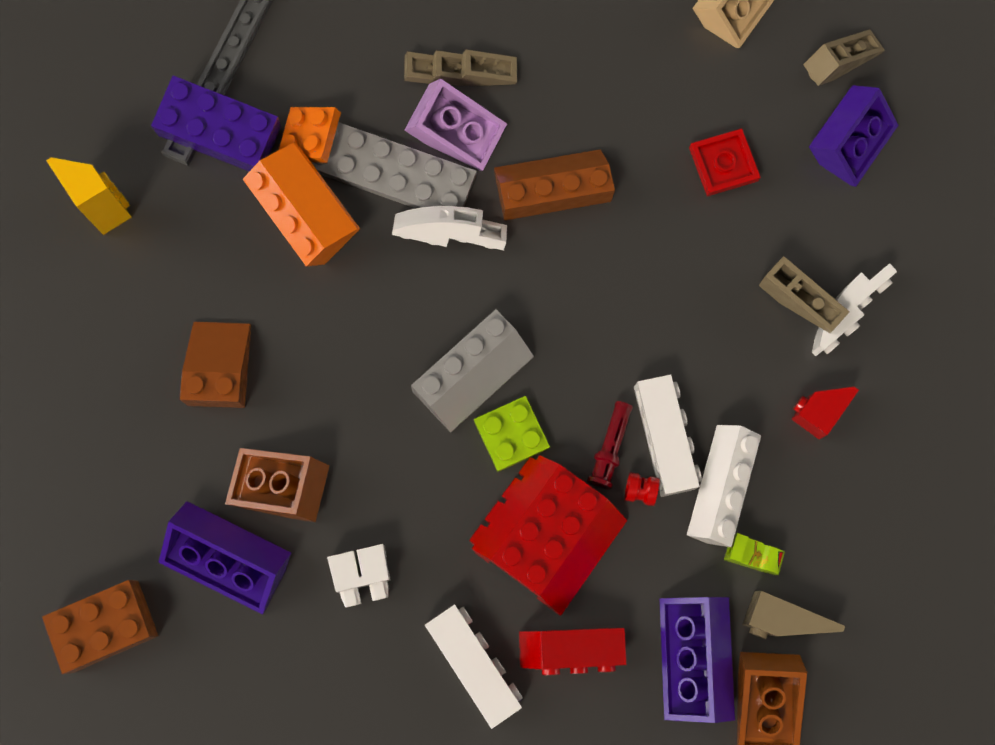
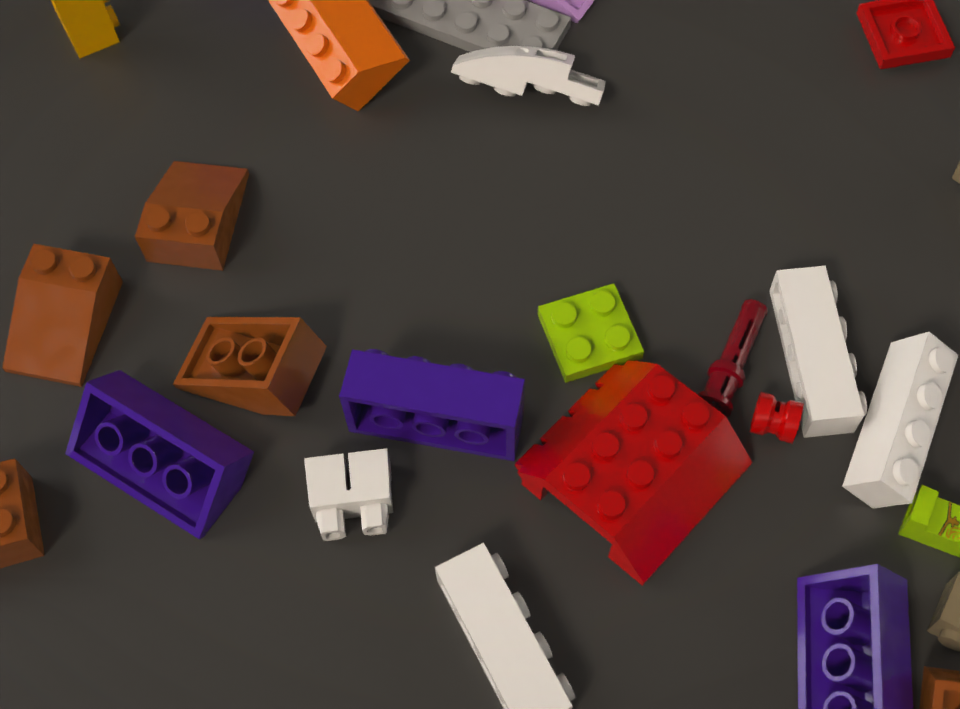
camera: 15 degrees right, 15 degrees down
(134, 459) = (60, 314): none -> dark orange slope
(409, 508) = (433, 404): none -> dark purple brick
(472, 371) = (541, 244): light grey slope -> none
(554, 184) = (674, 43): dark orange slope -> none
(572, 650) = (658, 629): red wedge -> none

